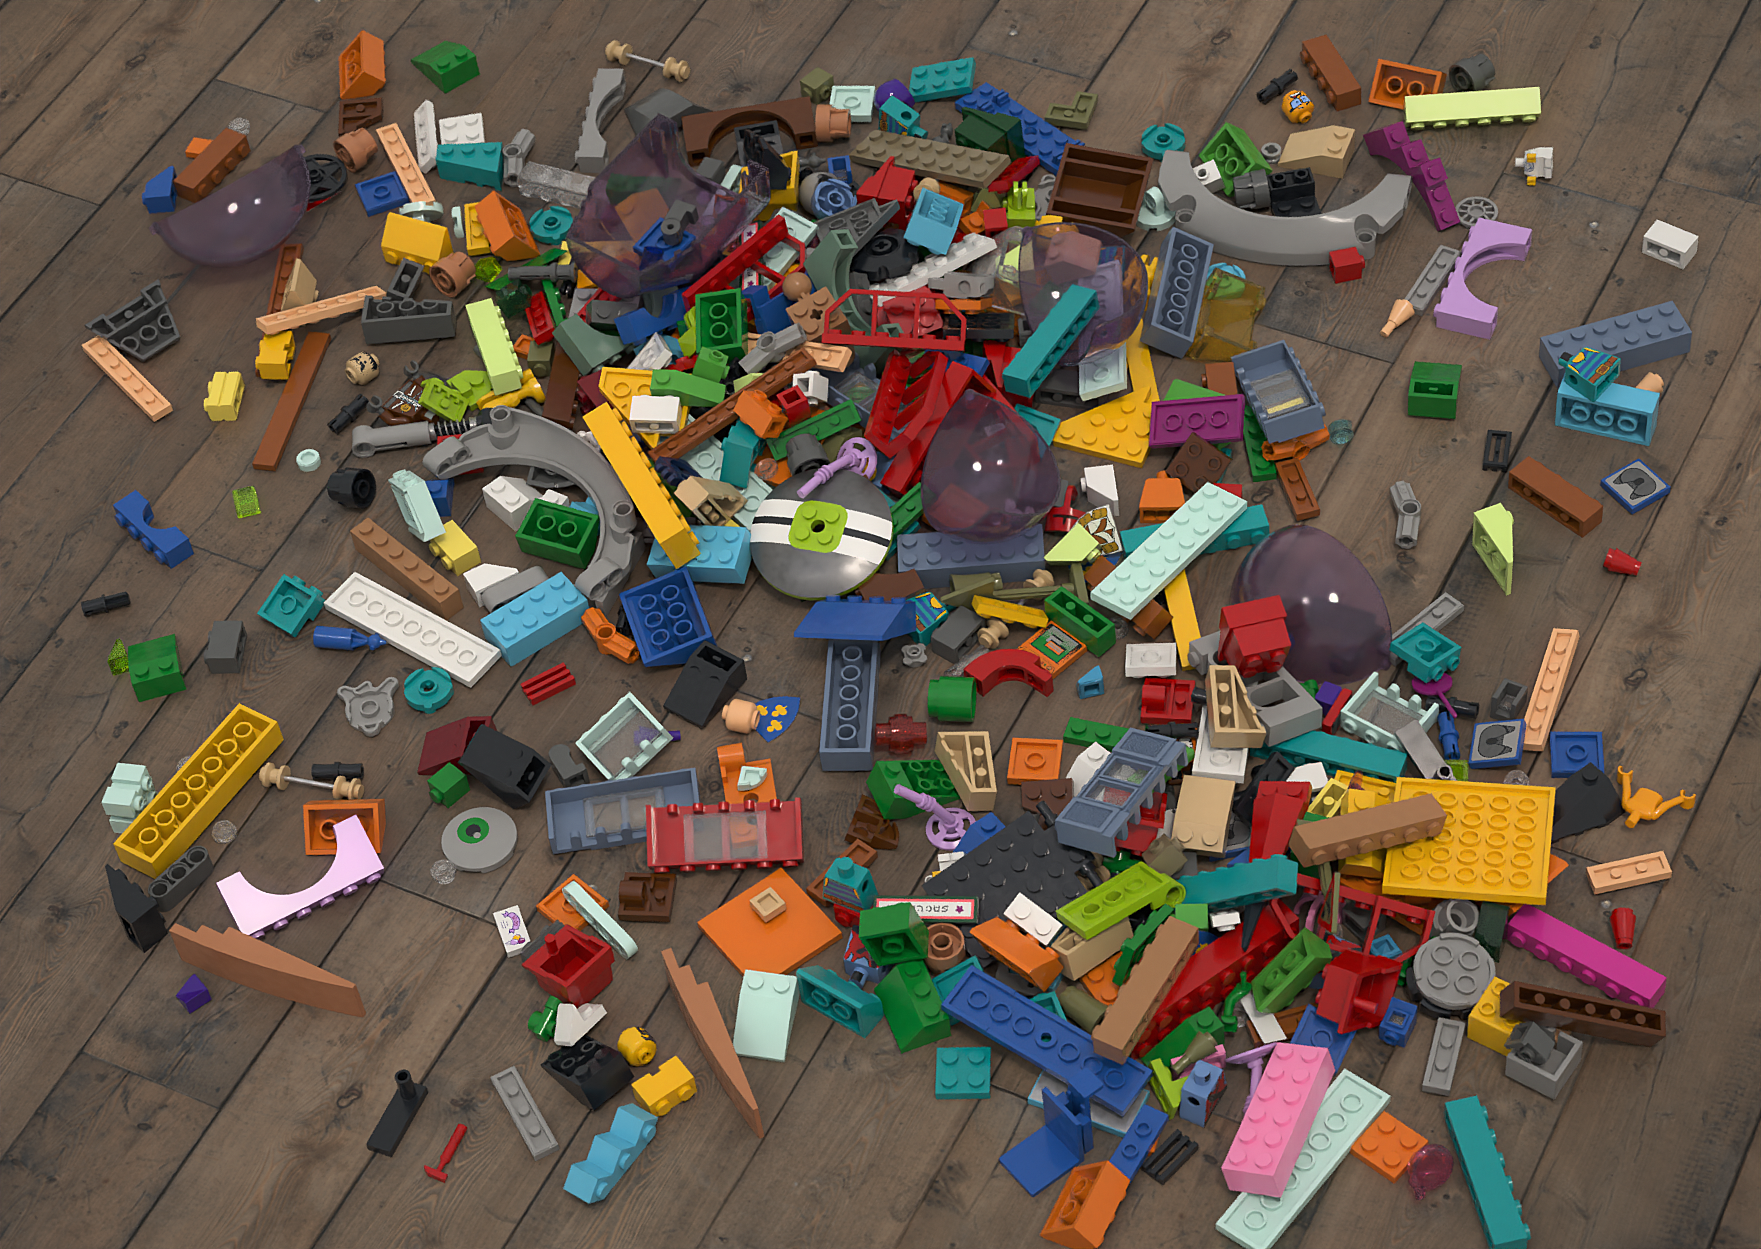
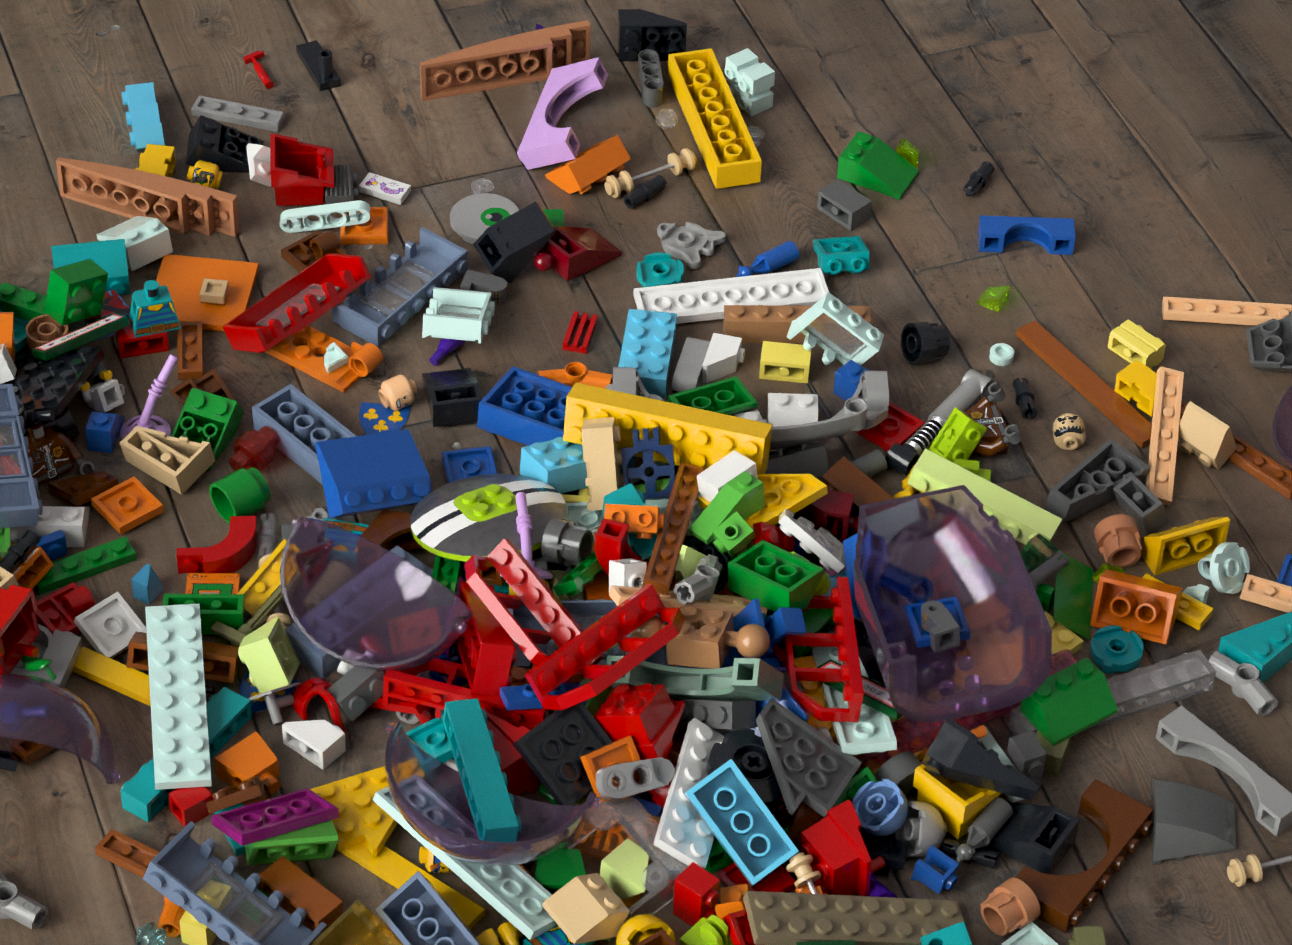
camera: 125 degrees right, 5 degrees down
(764, 626) = (468, 463): none -> blue tile

